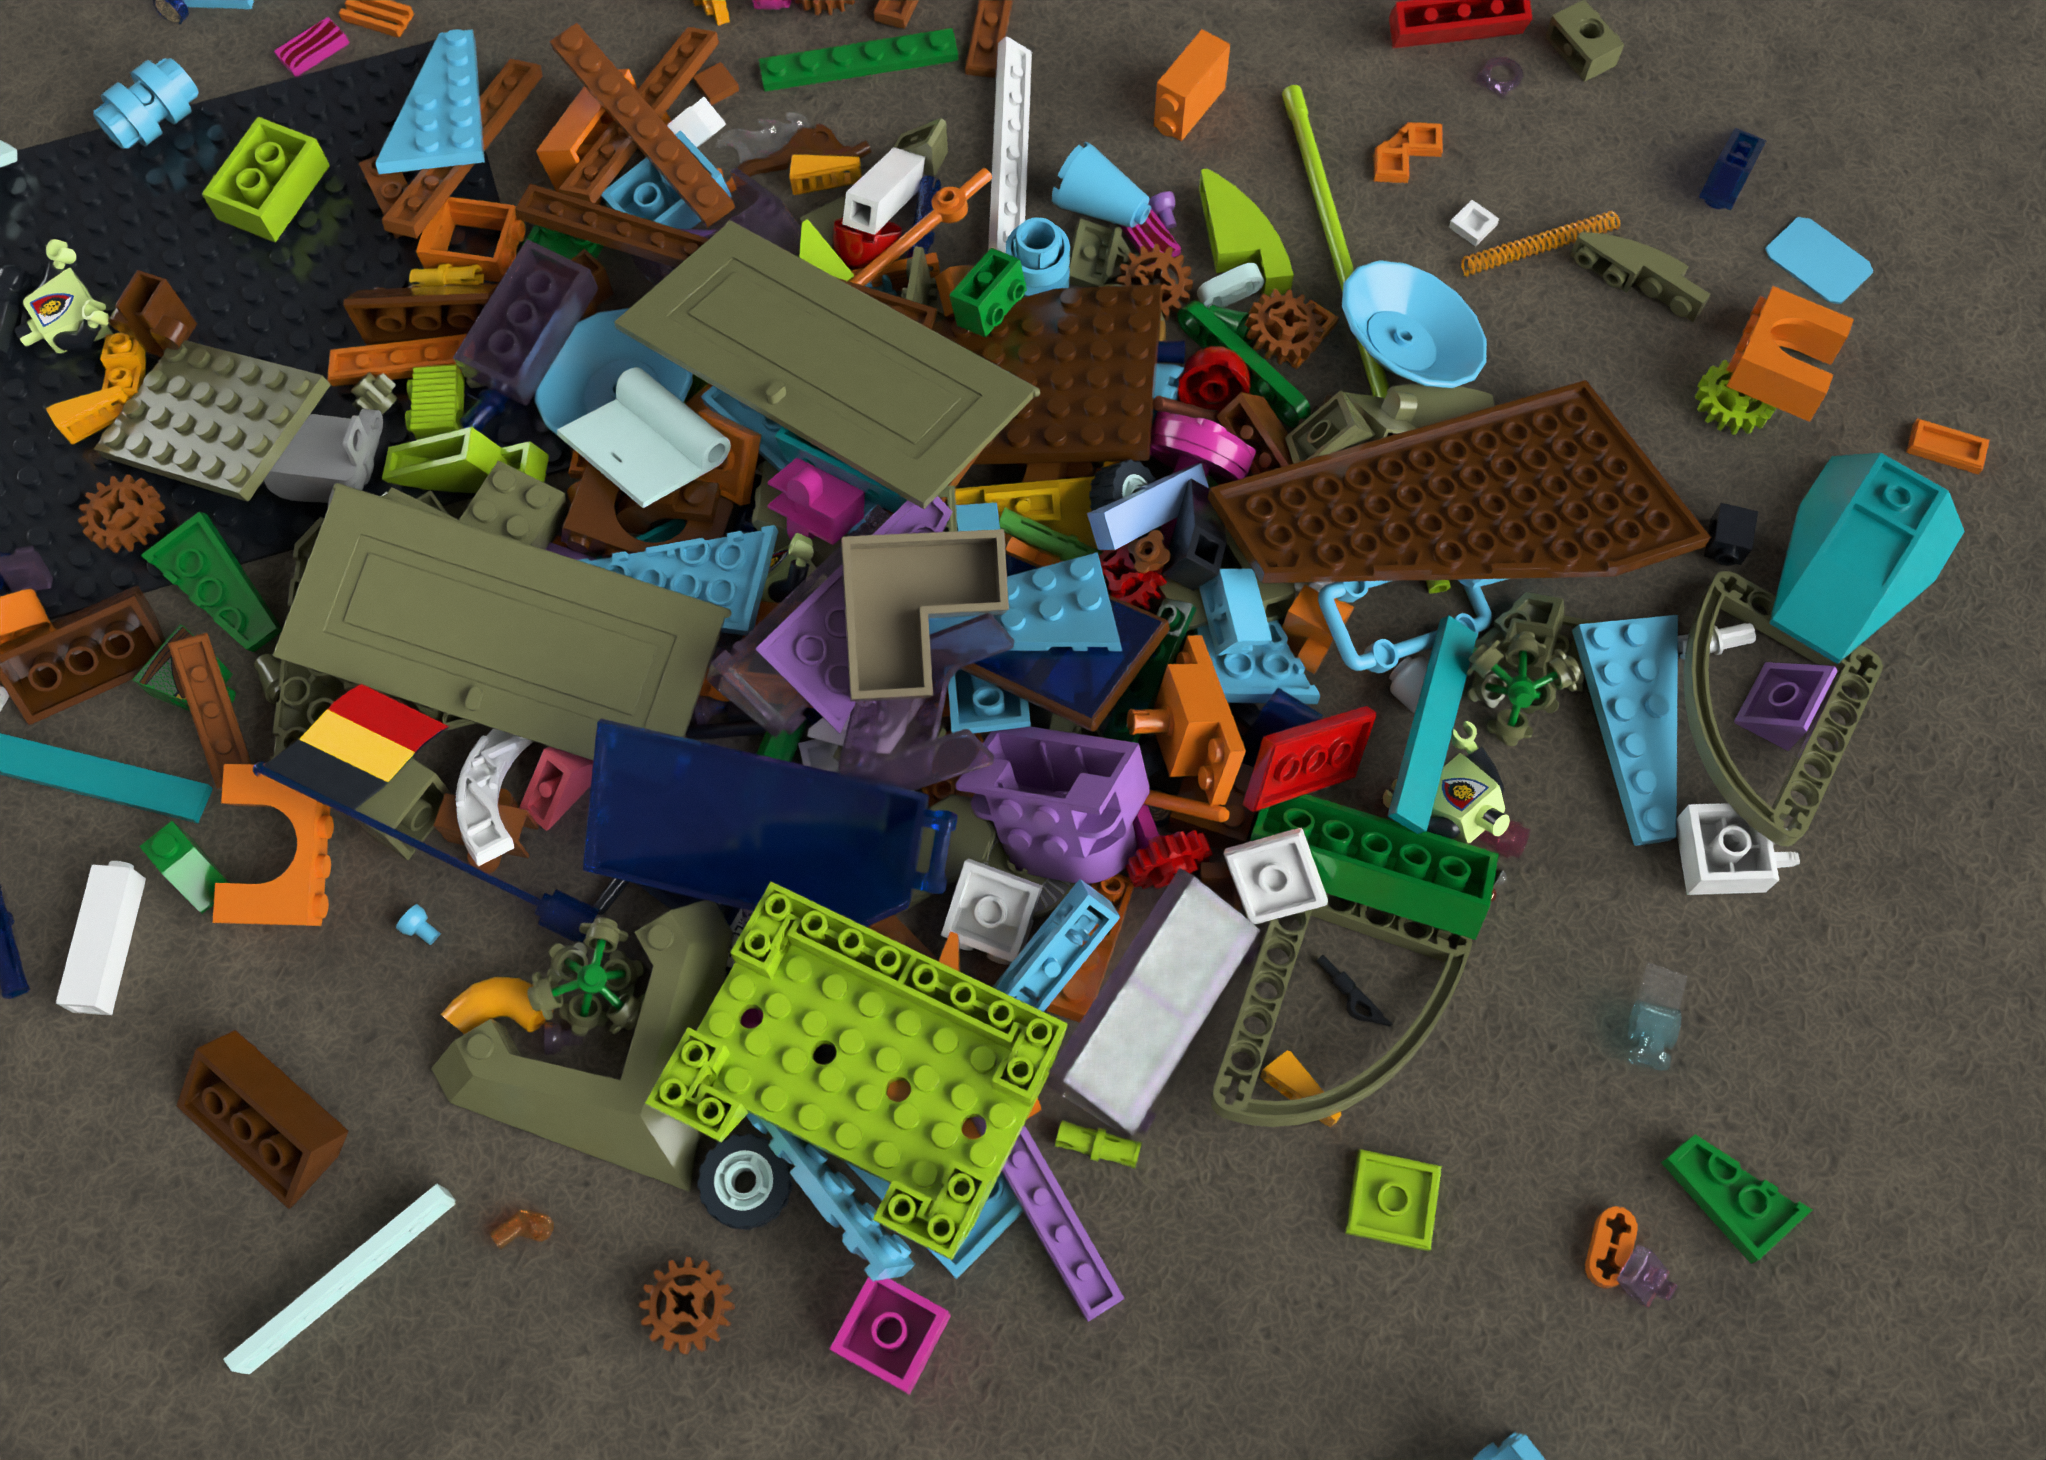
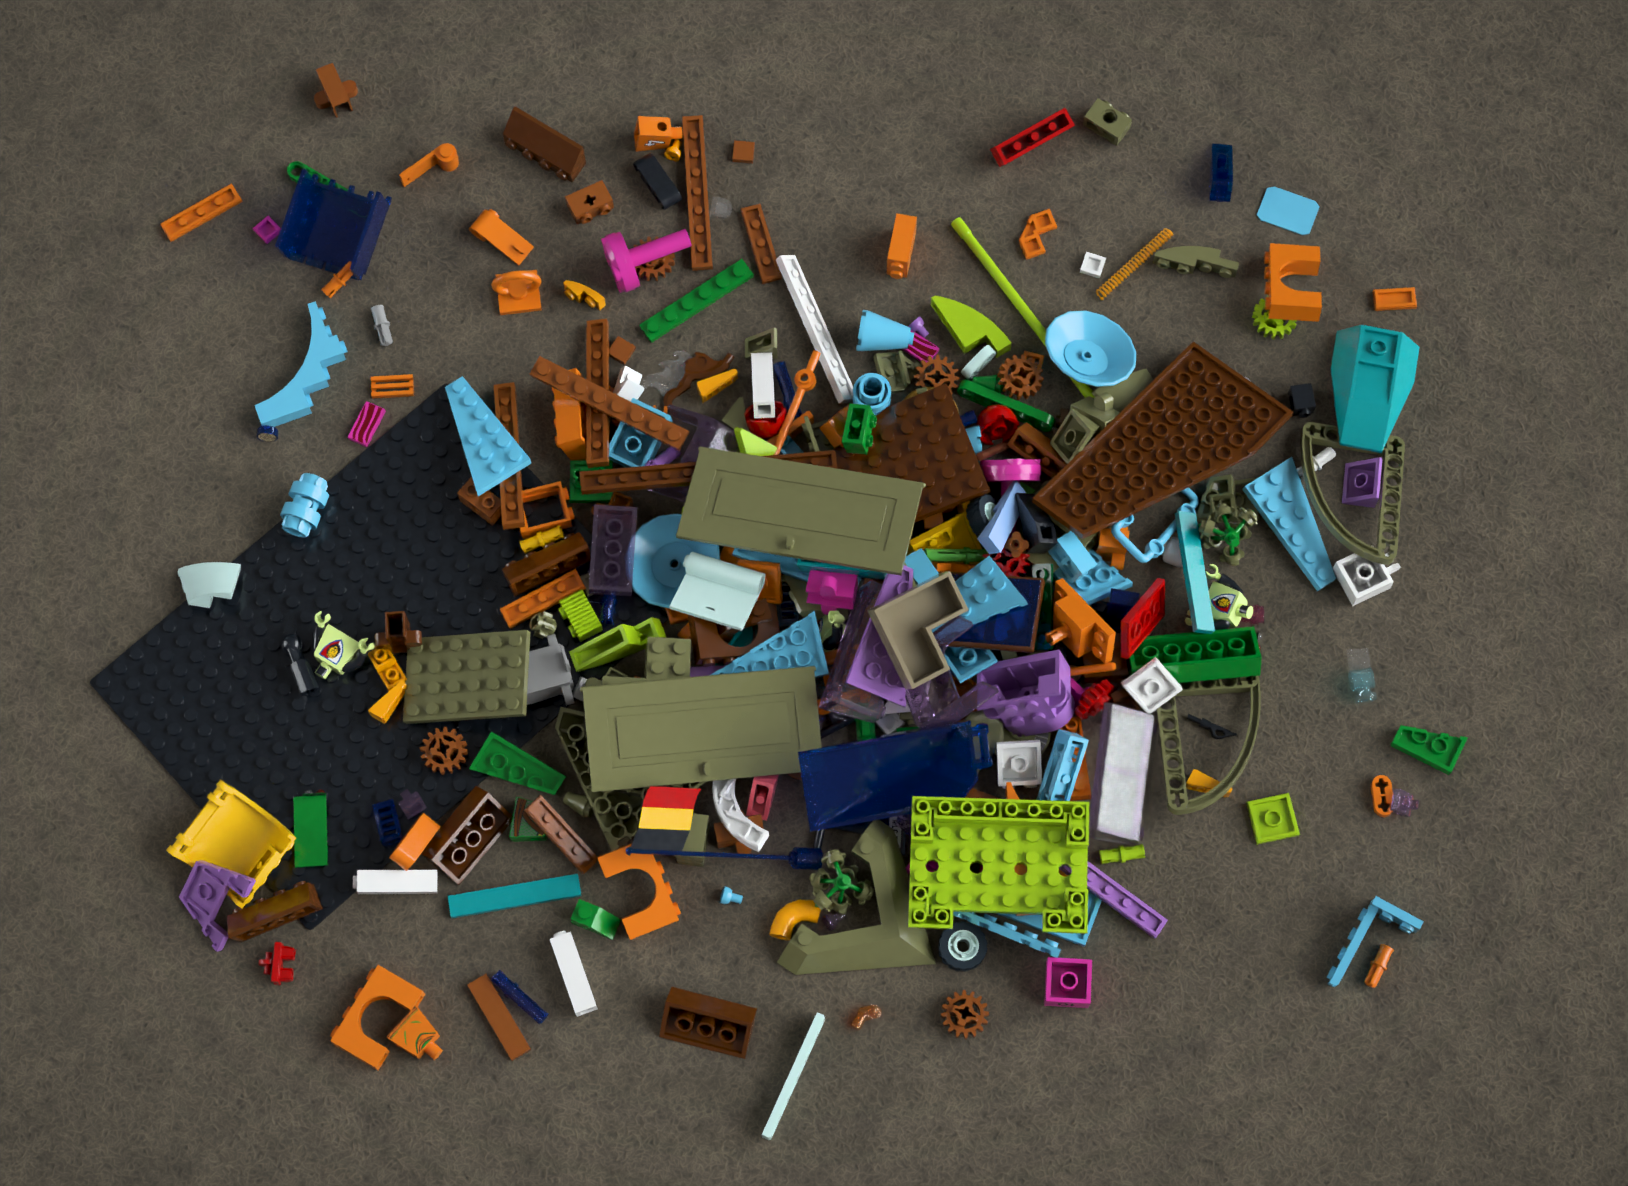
camera: 25 degrees left, 5 degrees up
(266, 179) = (405, 523): lime brick -> none
(1500, 89) = (1073, 170): piece -> none

